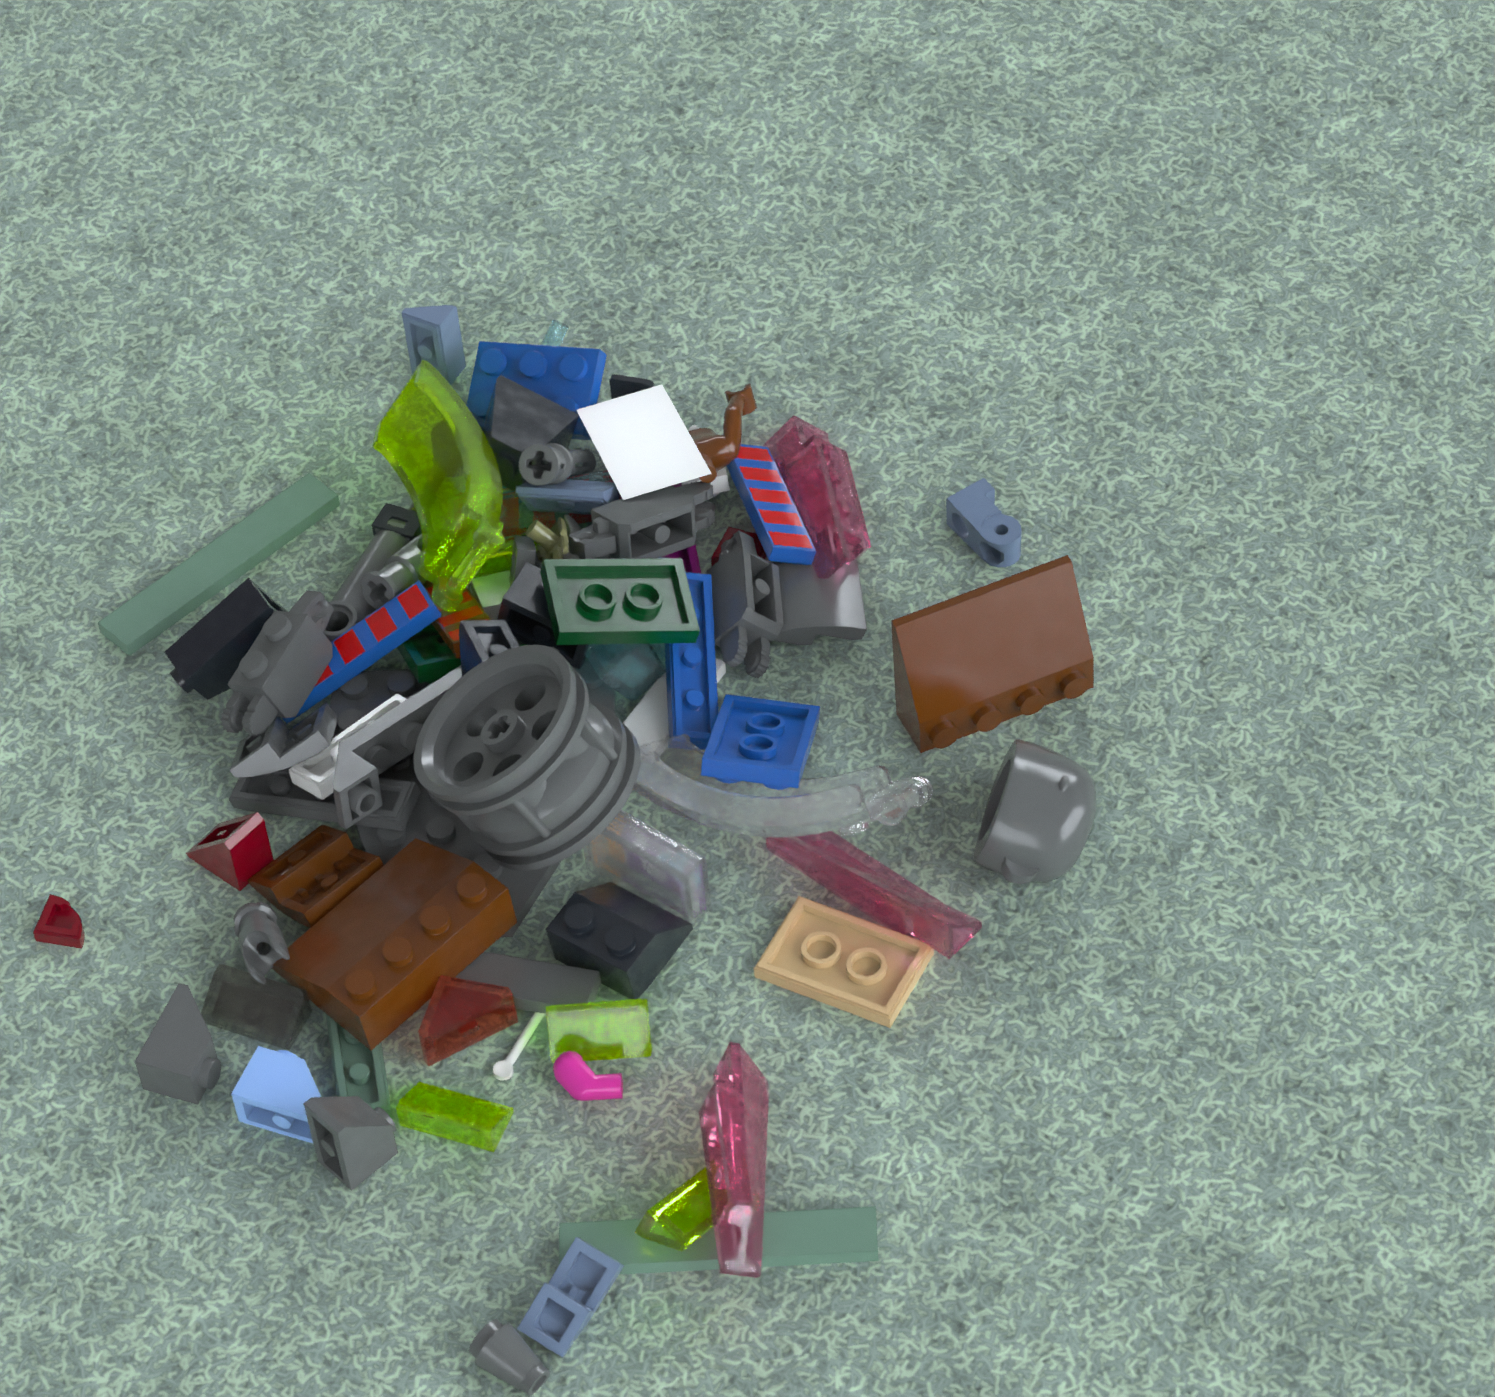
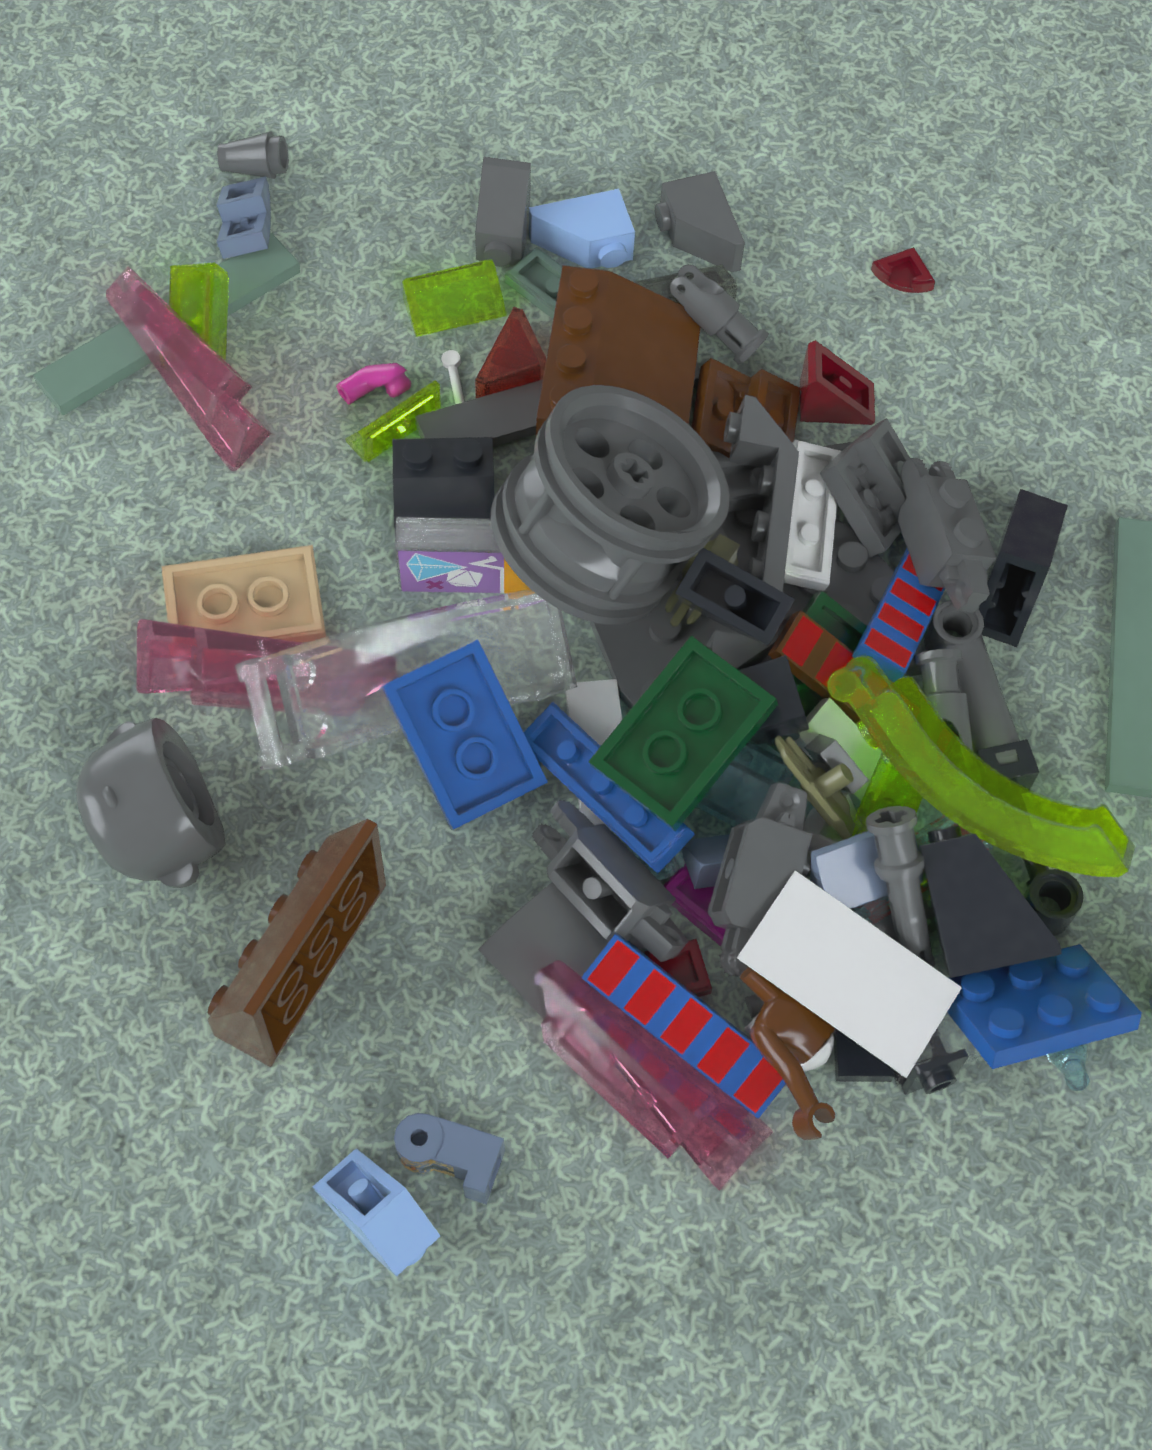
camera: 135 degrees right, 15 degrees up
(1061, 518) = (377, 1211): none -> light blue slope

